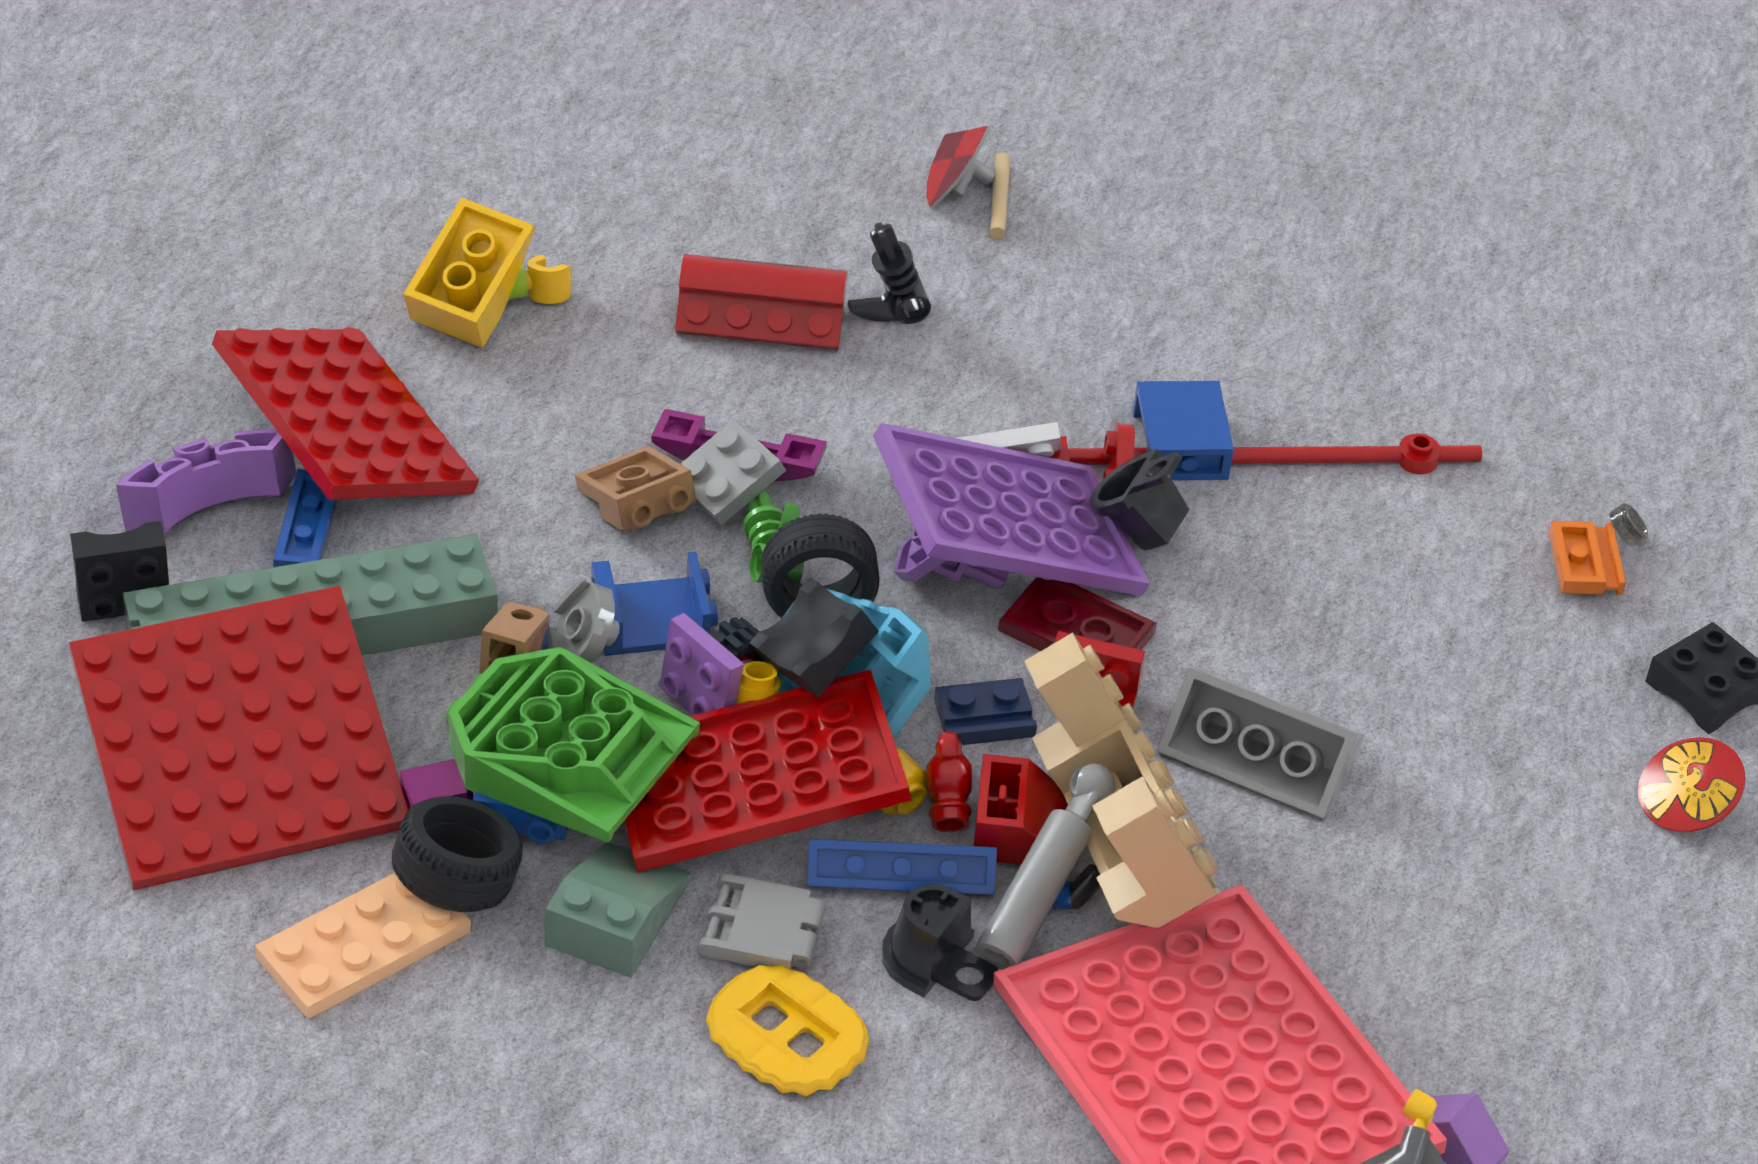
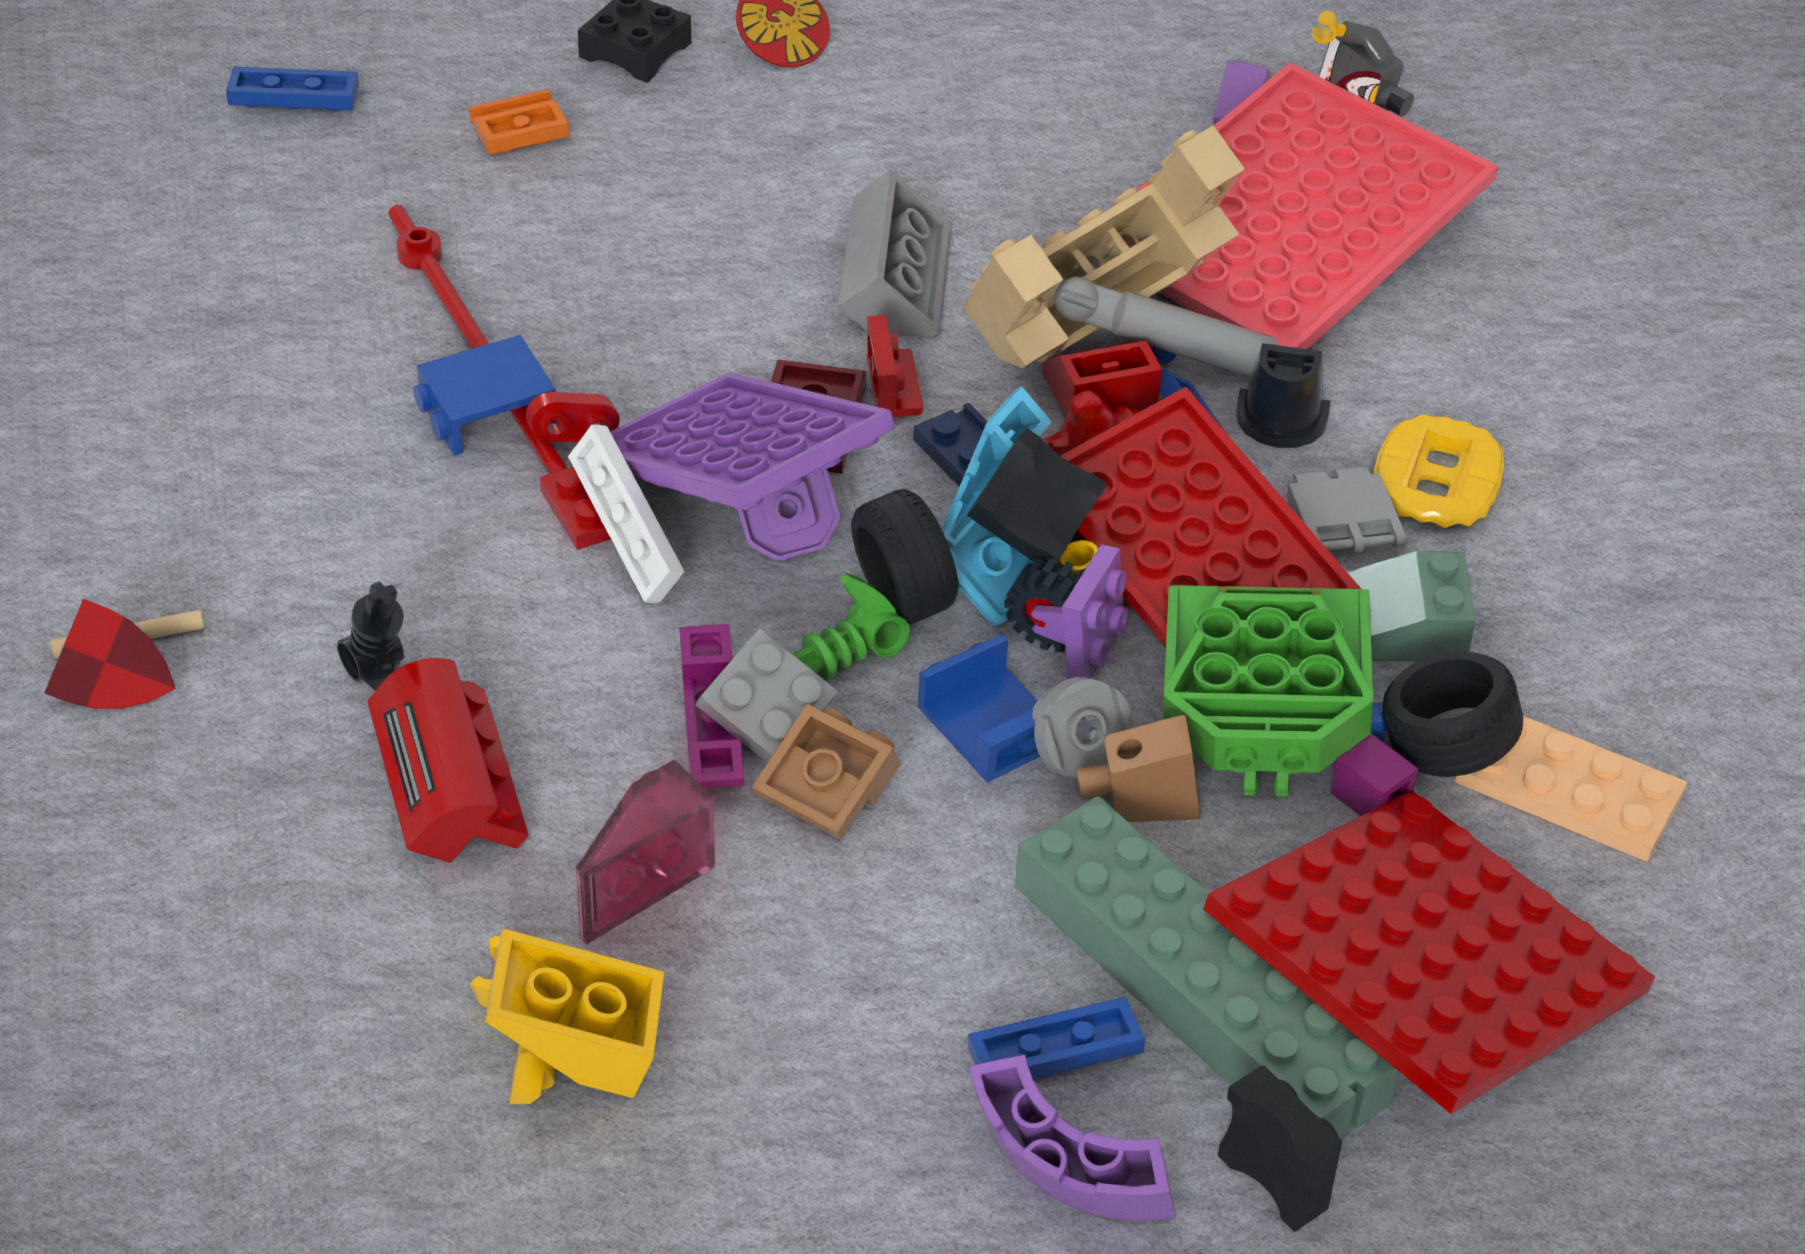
camera: 110 degrees left, 0 degrees up
(344, 413) = (880, 1055): red plate -> none
(605, 355) = (646, 849): none -> clear pink slope
(1143, 499) = (642, 374): black container -> none
(1628, 524) = (459, 101): clear smoke tile -> none
(1690, 428) = (292, 88): none -> blue plate

